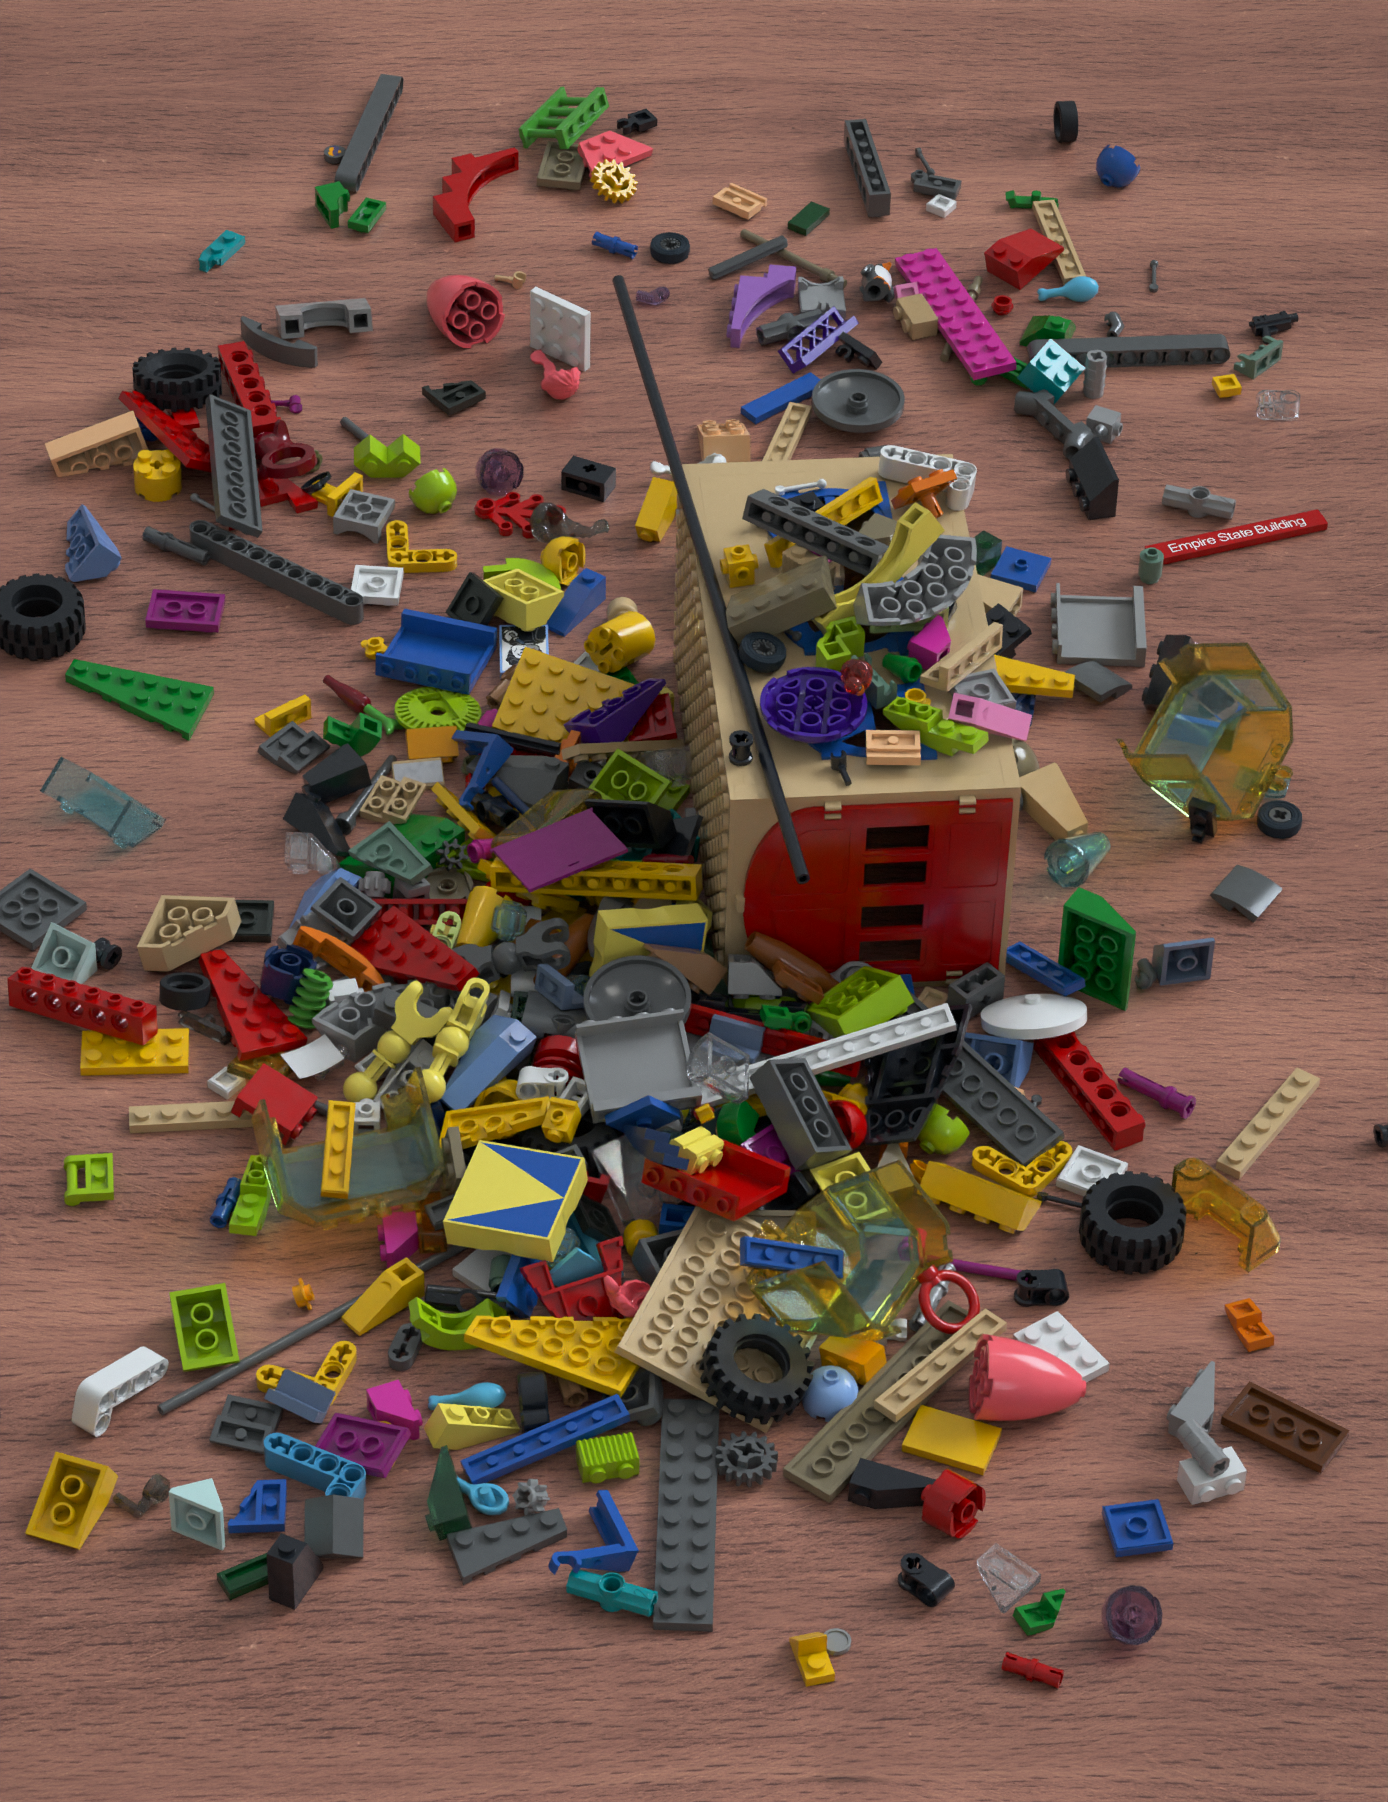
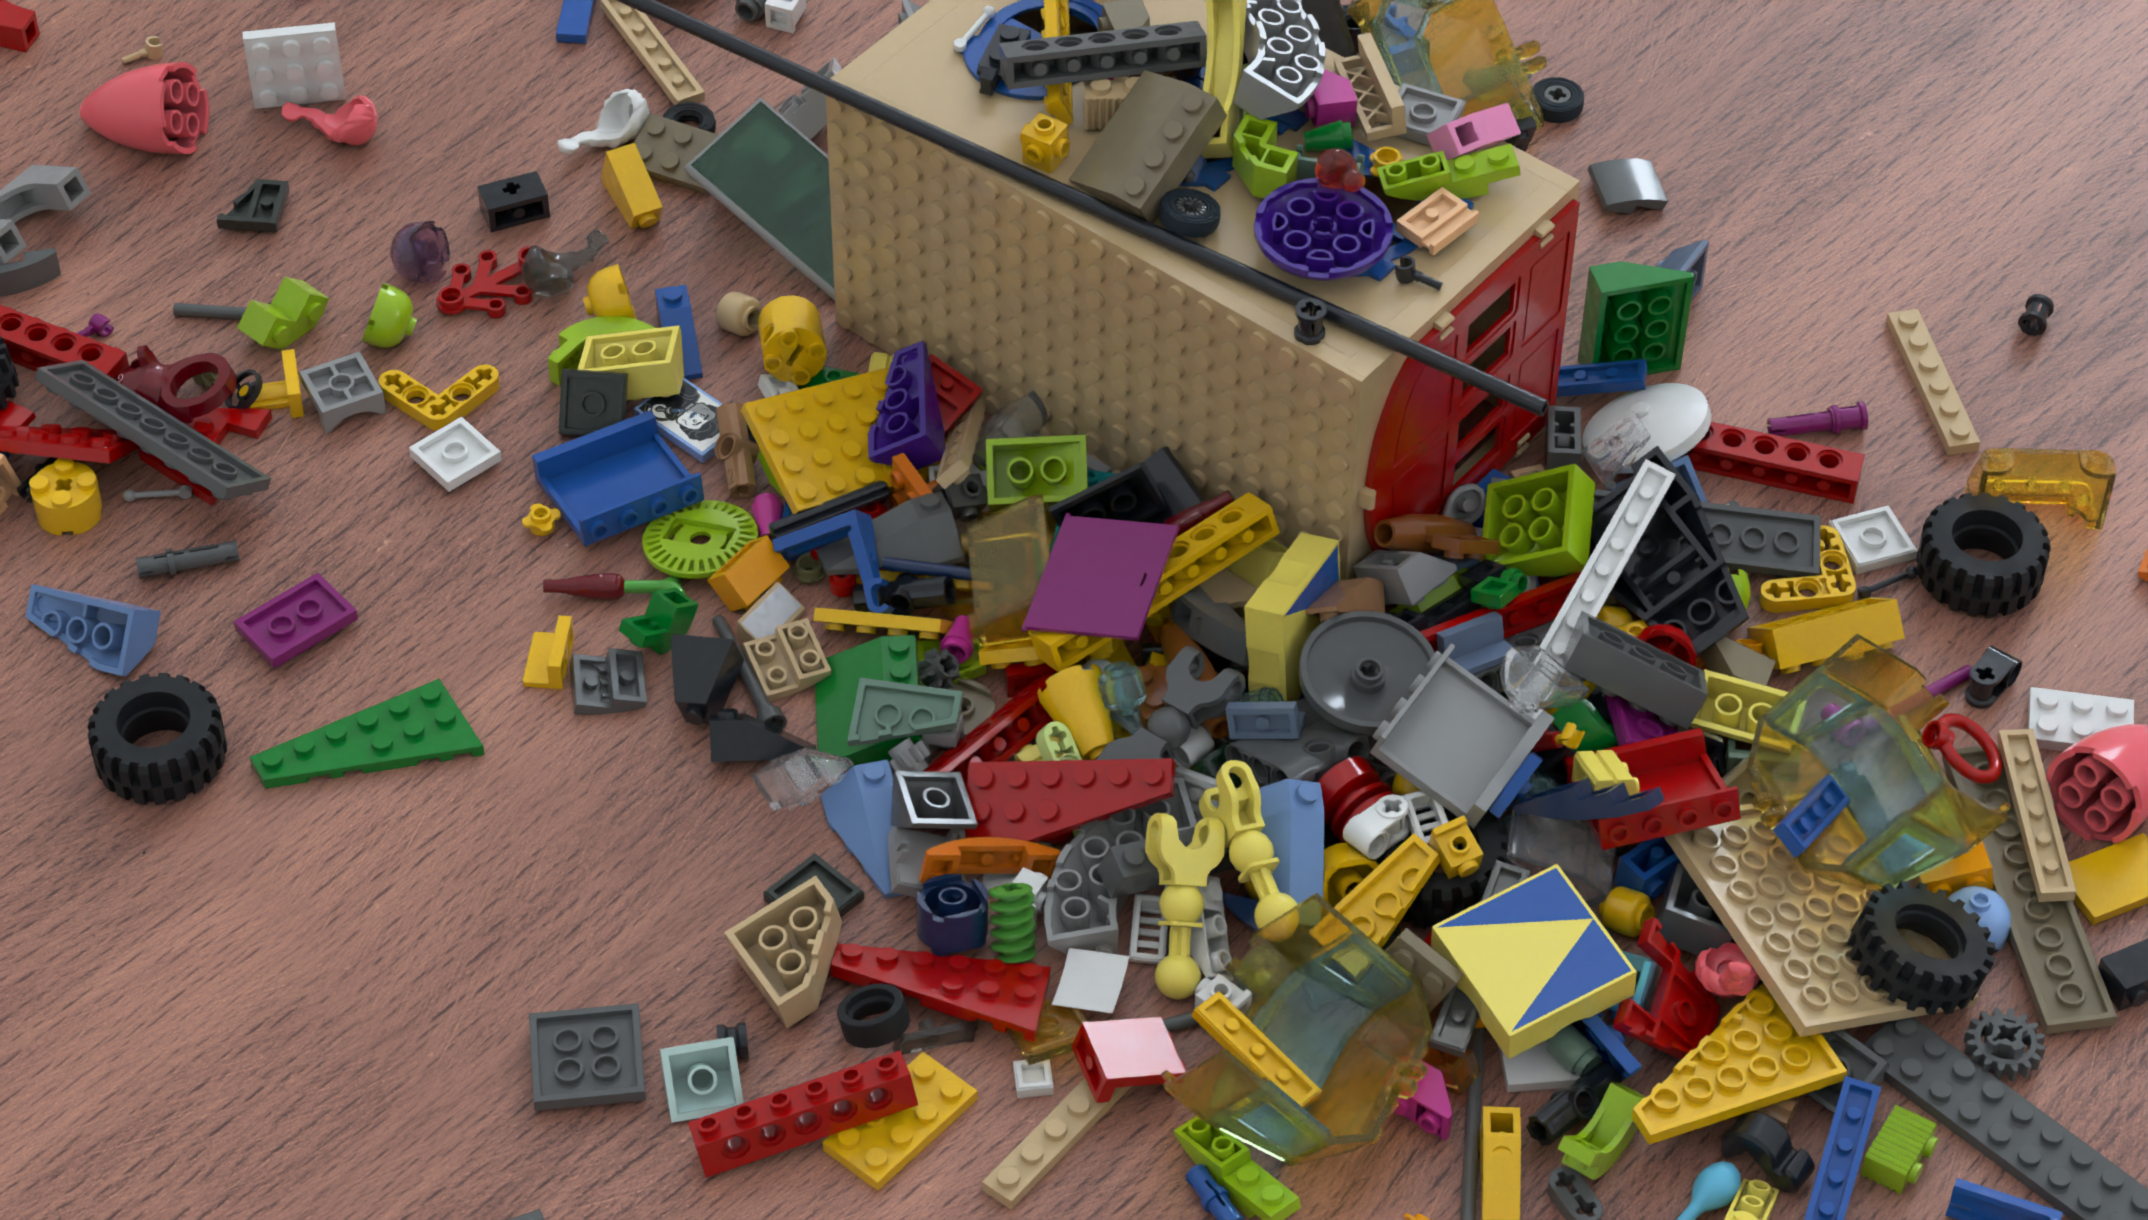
camera: 45 degrees left, 5 degrees up
(102, 803) = (519, 886): clear light blue windscreen -> none
(278, 572) = (337, 511): dark grey beam -> none
(727, 439) = (589, 77): light nougat slope -> none
(1000, 1005) = (1616, 448): none -> clear wing

